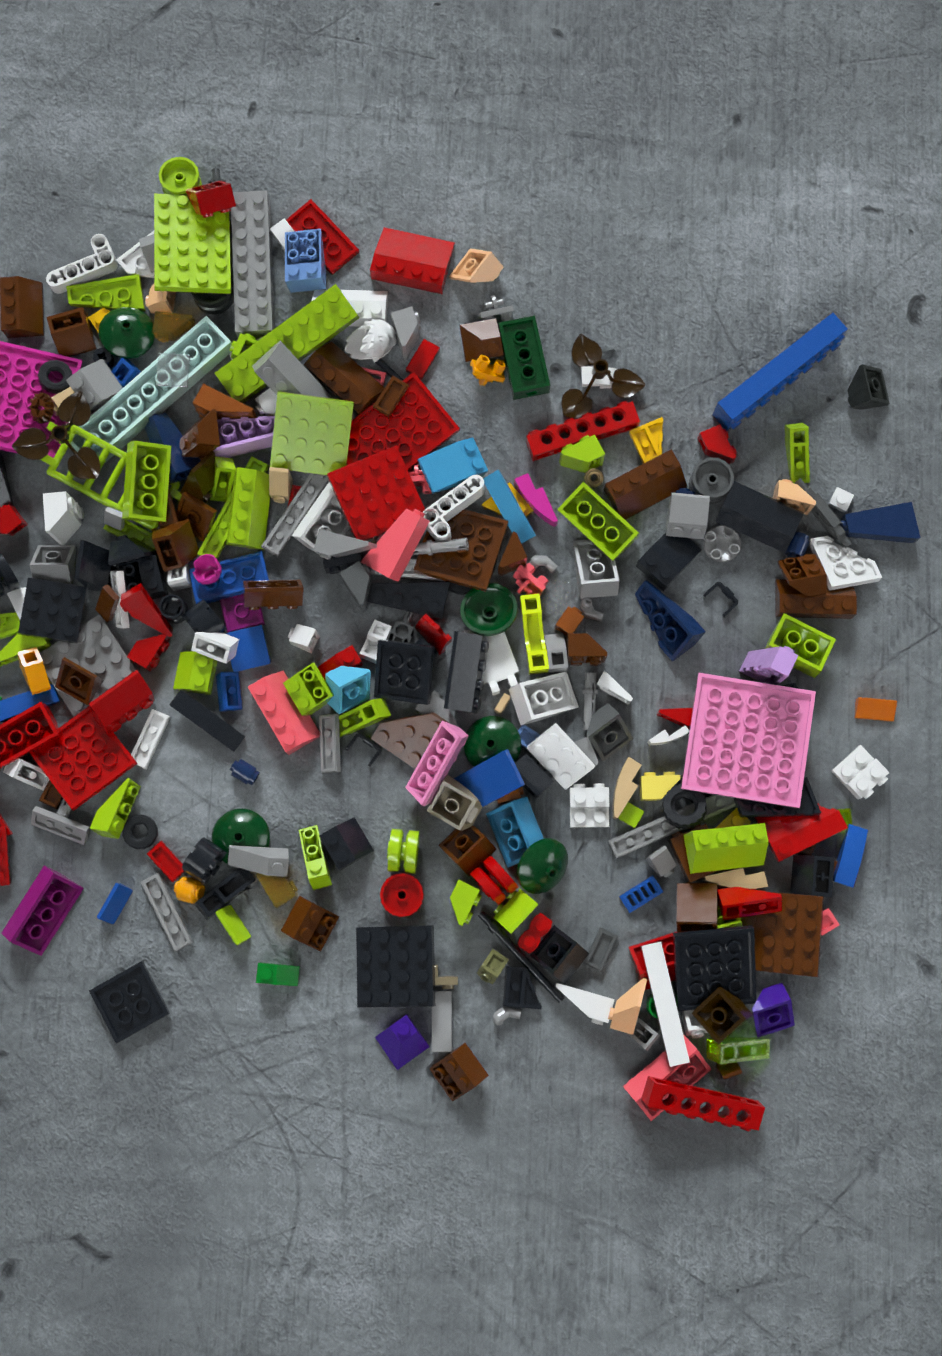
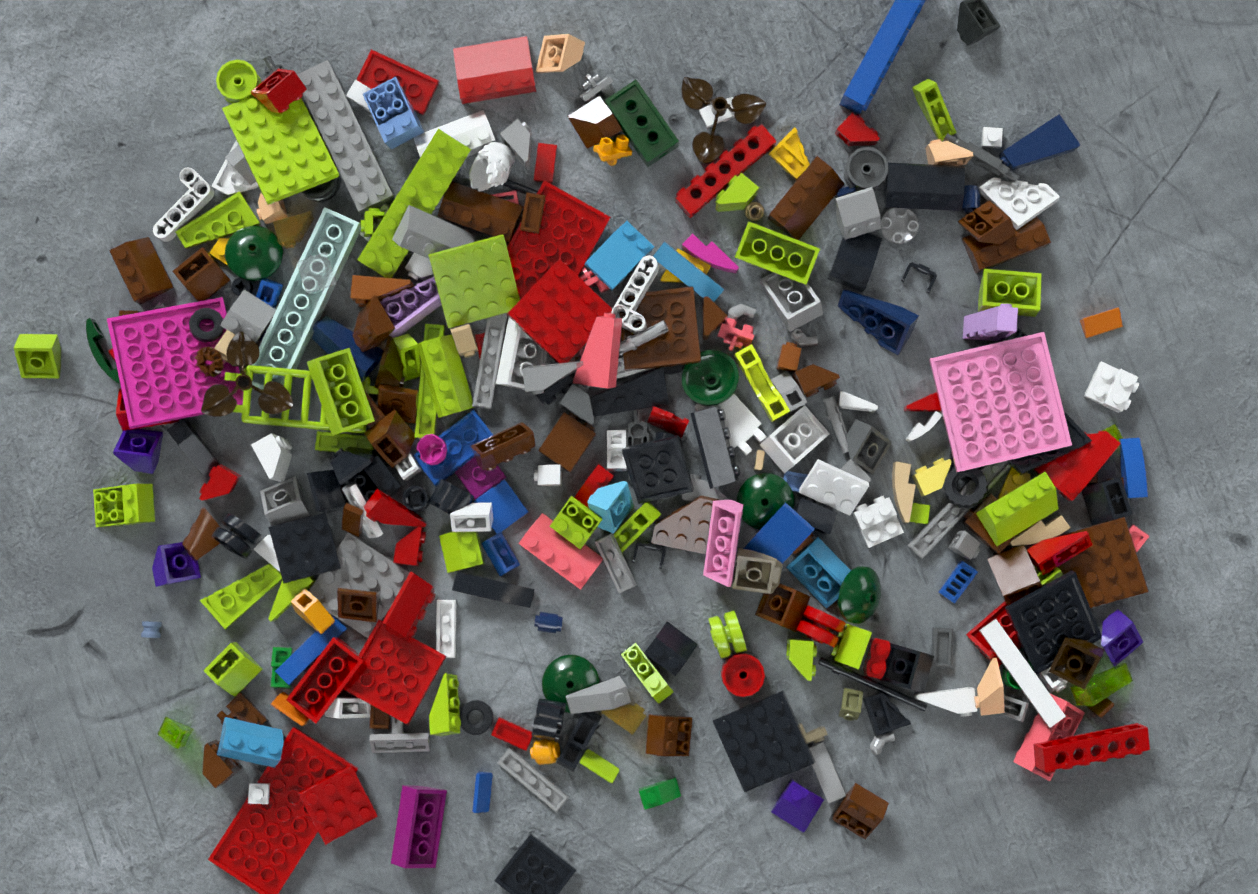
camera: 20 degrees left, 5 degrees up
(113, 518) = (322, 437): light grey tile -> none
(334, 614) = (568, 441): none -> reddish brown brick

